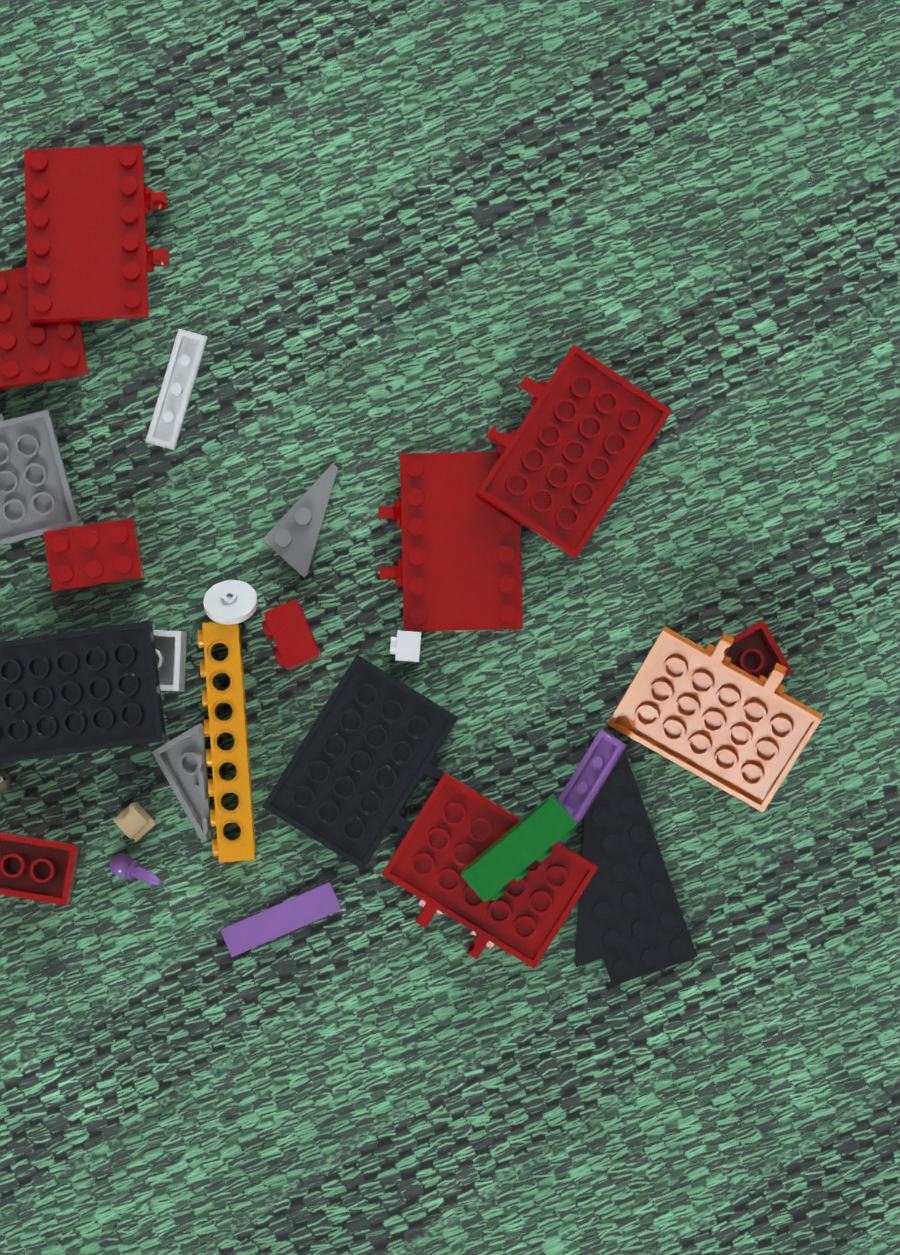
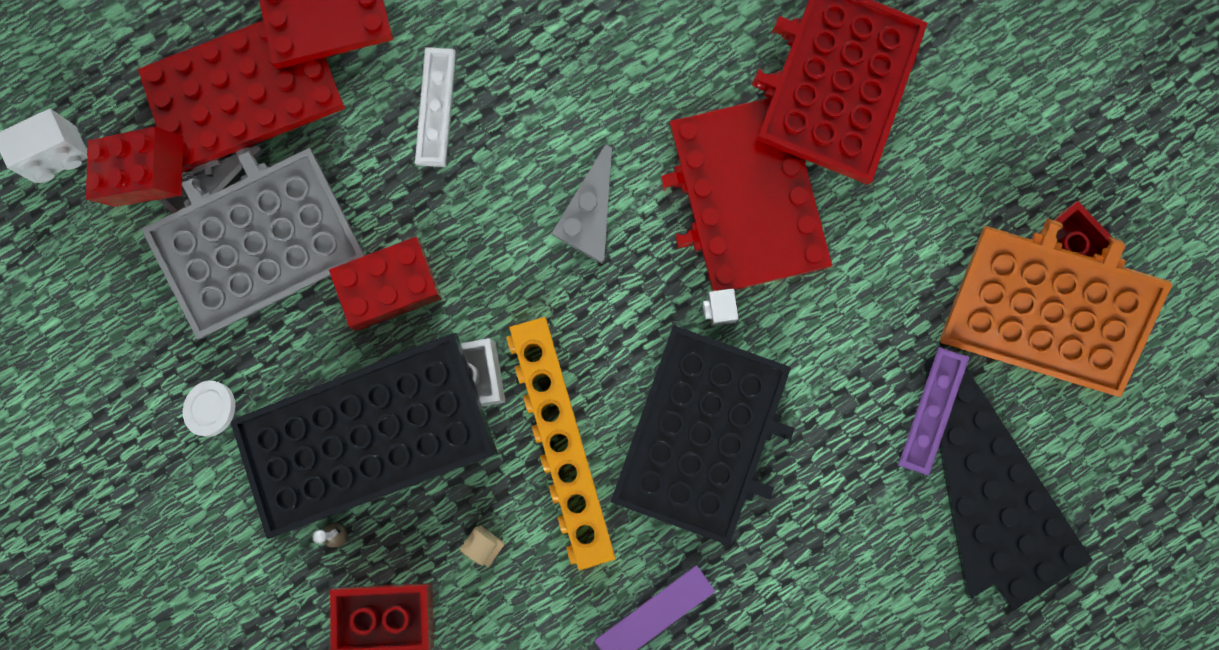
camera: 10 degrees left, 5 degrees down
(123, 865) = (481, 595): medium lavender bar -> none
(186, 771) = (524, 482): light grey wing -> none
(230, 602) = (533, 301): white piece -> none
(291, 634) = (603, 318): red brick -> none
(451, 834) = (859, 520): red hinge -> none
(519, 848) = (890, 487): green brick -> none

